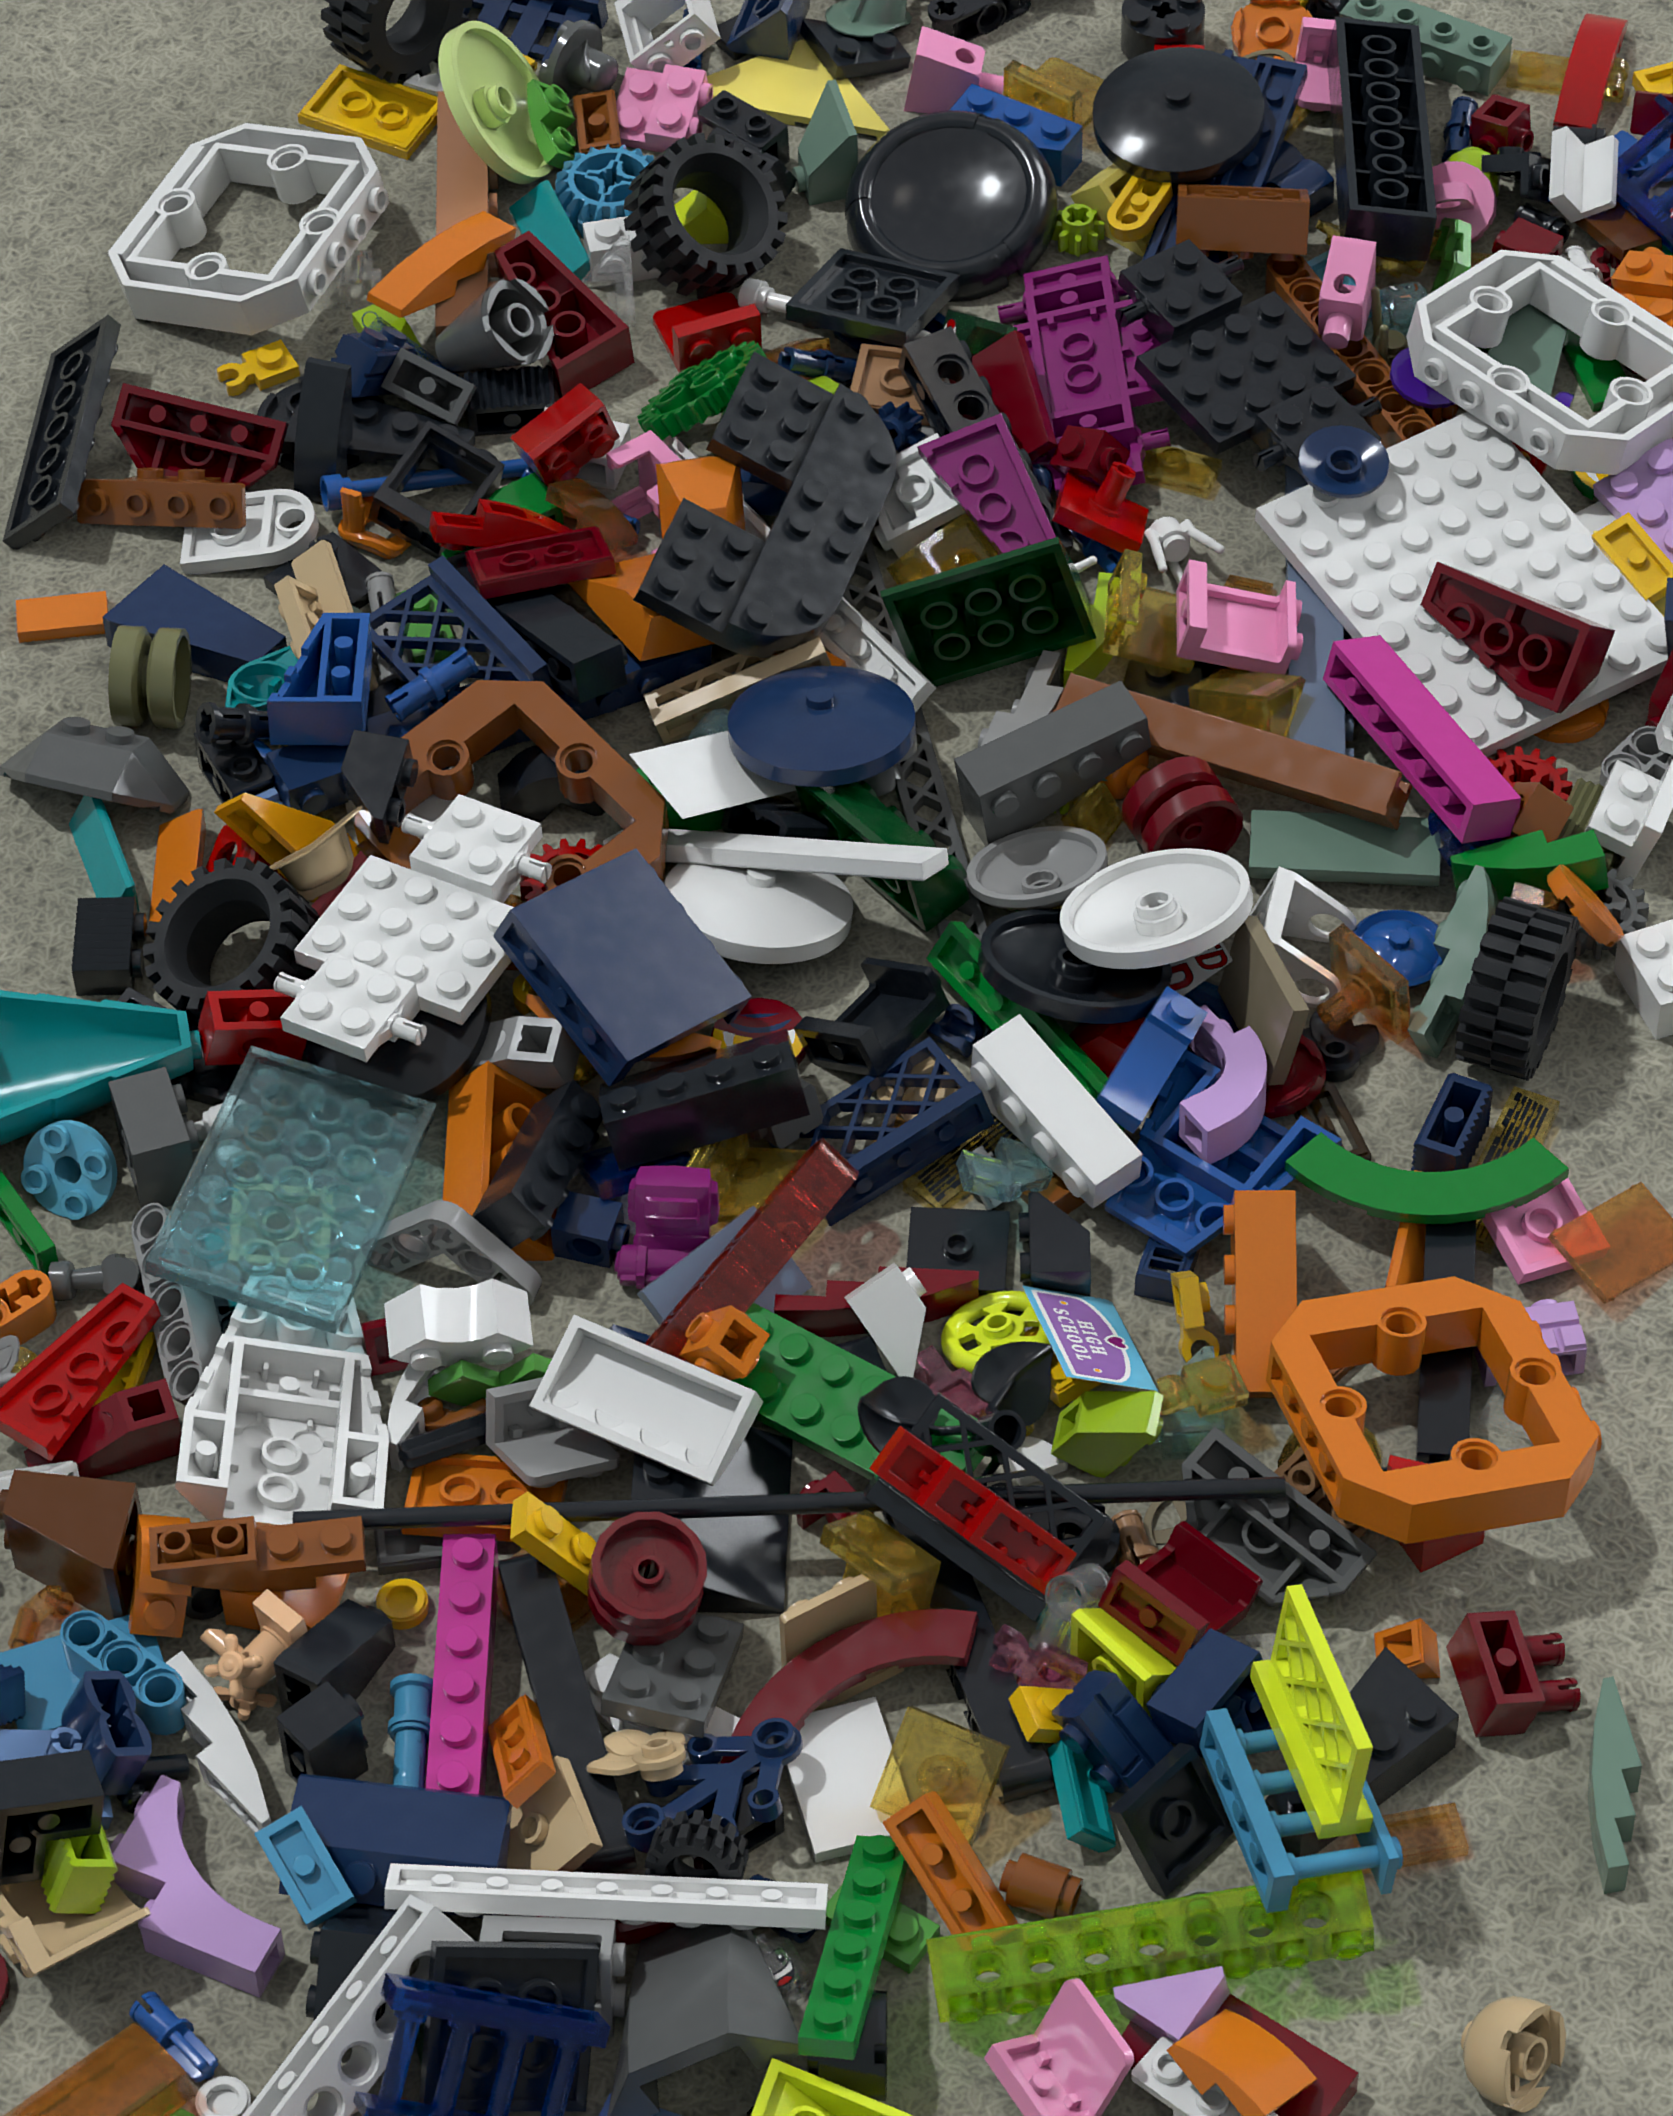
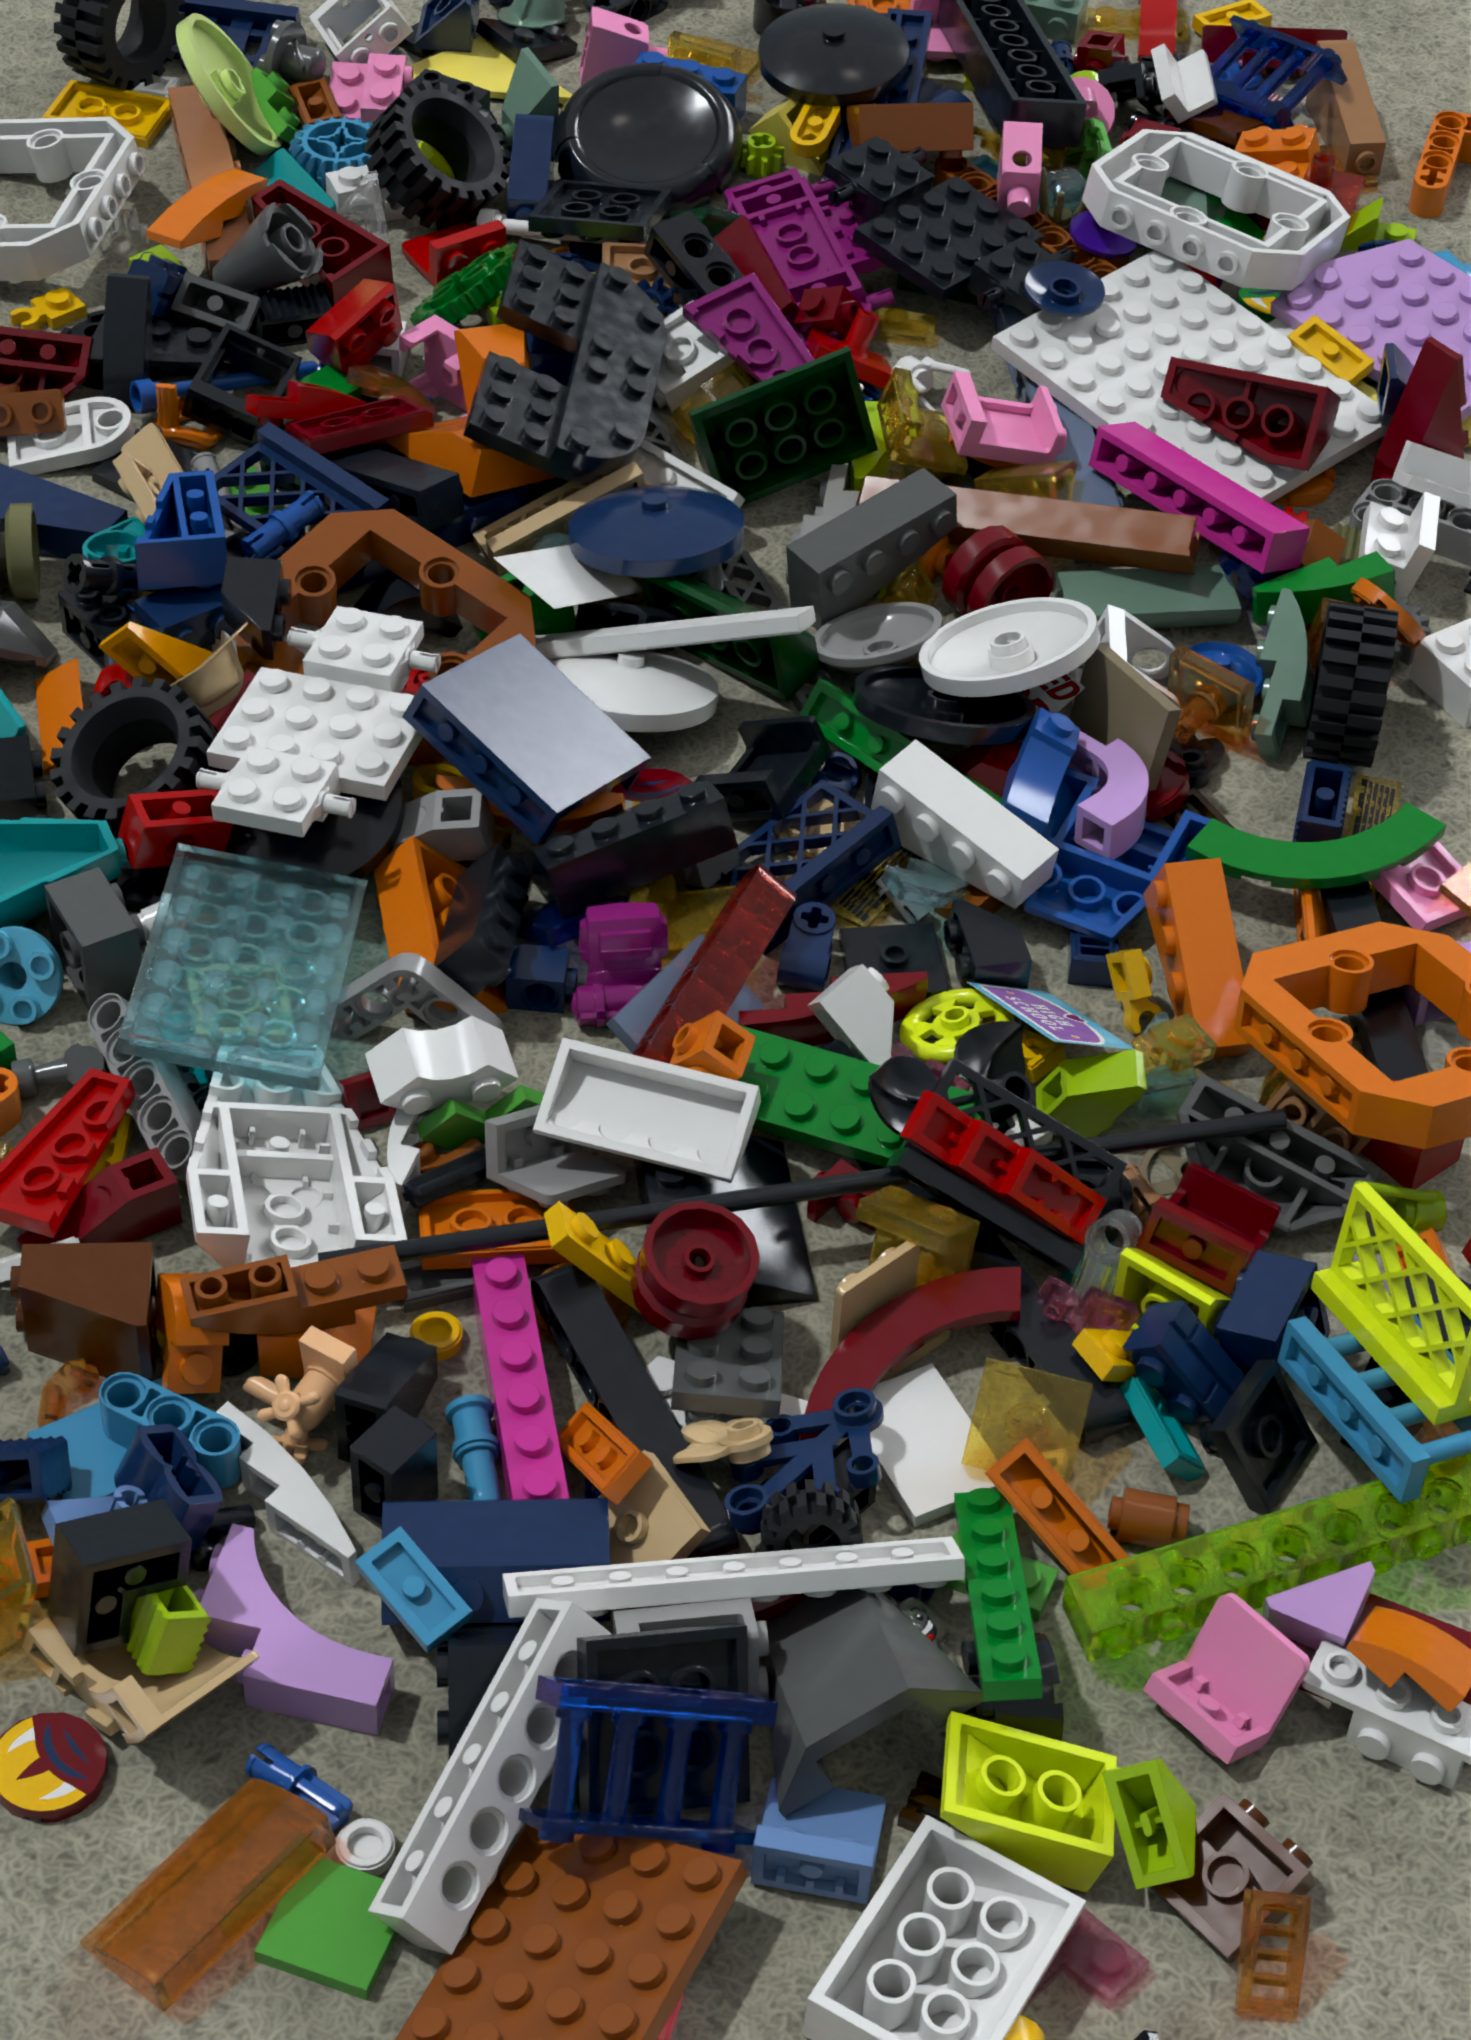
camera: 15 degrees left, 5 degrees down
(811, 232) = (531, 164): none -> dark blue slope
(869, 1228) = (808, 948): none -> dark blue piece
(1414, 1594) = (1416, 1207): none -> lime plant

